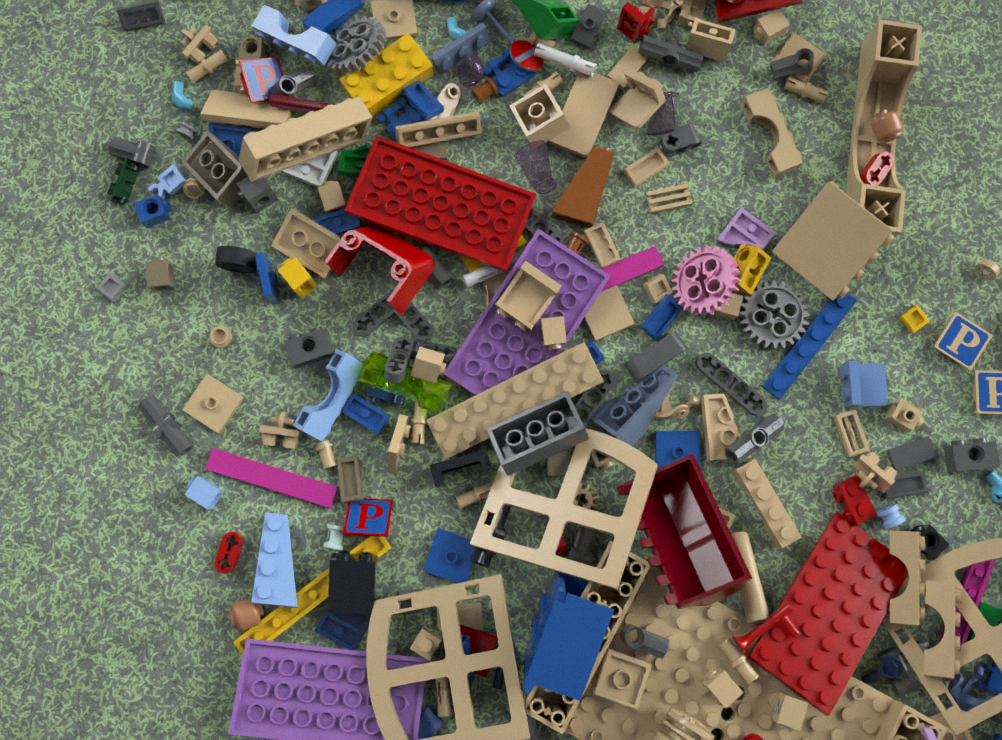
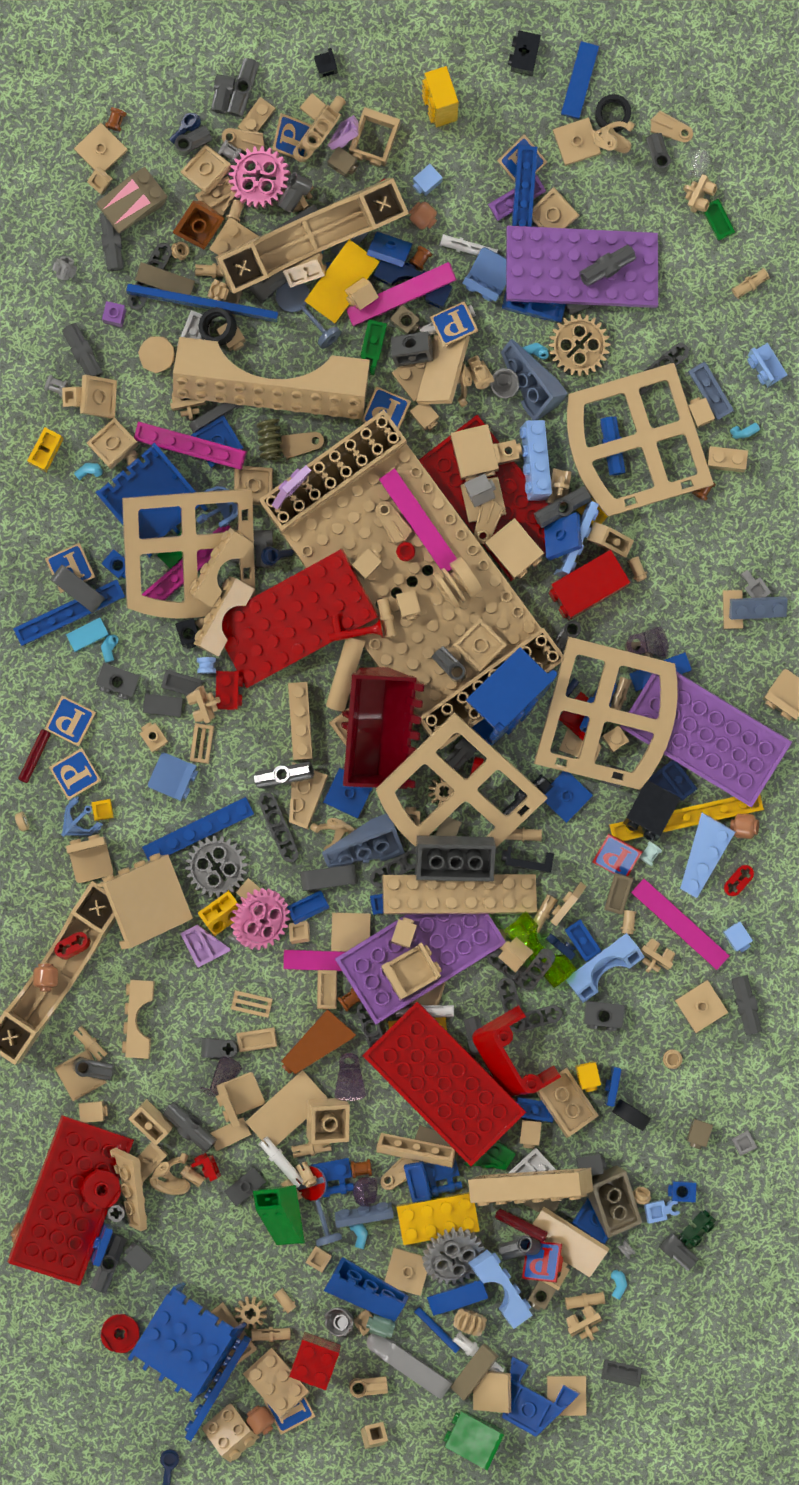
camera: 150 degrees left, 5 degrees up
(535, 58) = (306, 1175): none -> tan pin
(903, 265) = (90, 858): none -> tan bracket
(938, 283) = (70, 827): none -> medium blue helmet

